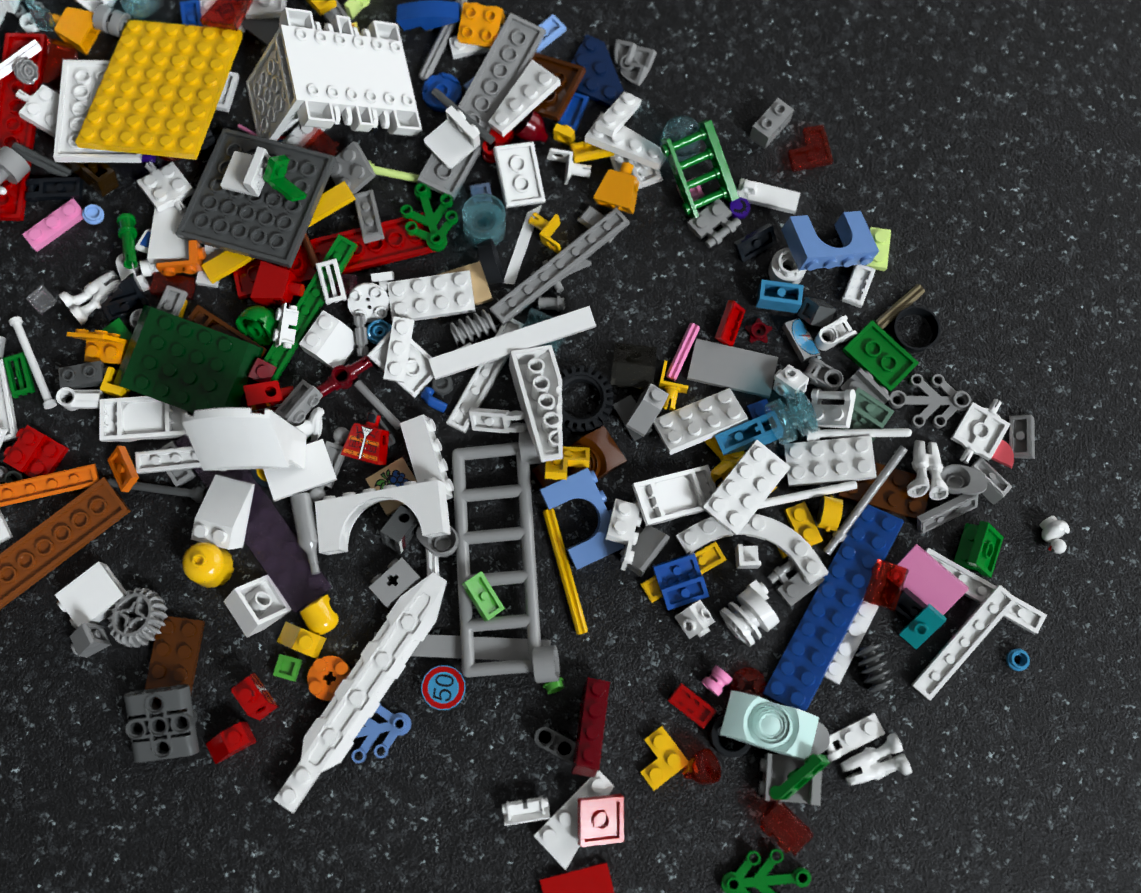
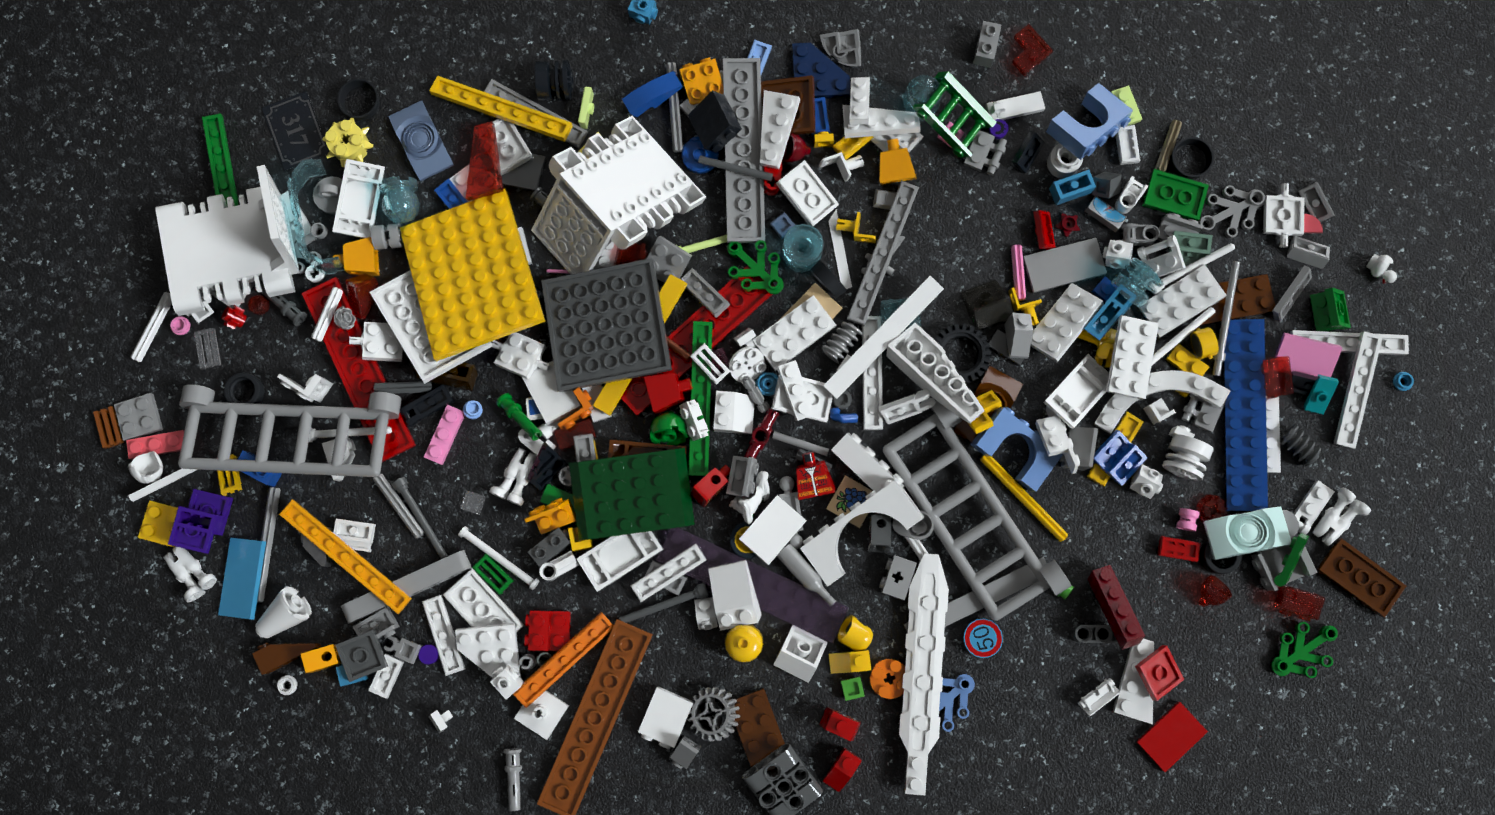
camera: 25 degrees left, 5 degrees up
(123, 468) = (629, 604): orange plate -> none
(186, 517) = (705, 613): none -> white bracket
(244, 440) = (730, 533): white windscreen -> none
(246, 172) = (589, 309): white bracket -> none
(261, 371) = (695, 466): dark red plate -> none
(275, 176) = (621, 304): green bracket -> none
(453, 138) = (739, 192): white bracket -> none
(468, 64) = (714, 121): none -> black brick
(483, 596) = (977, 551): bright green plate -> none
(551, 303) = (892, 287): light grey pin -> none
(668, 761) = (1183, 601): yellow plate -> none
(866, 838) = (1361, 577): none -> reddish brown plate
(930, 461) = (1254, 261): white piece -> none
(964, 479) = (1291, 262): light grey cap -> none

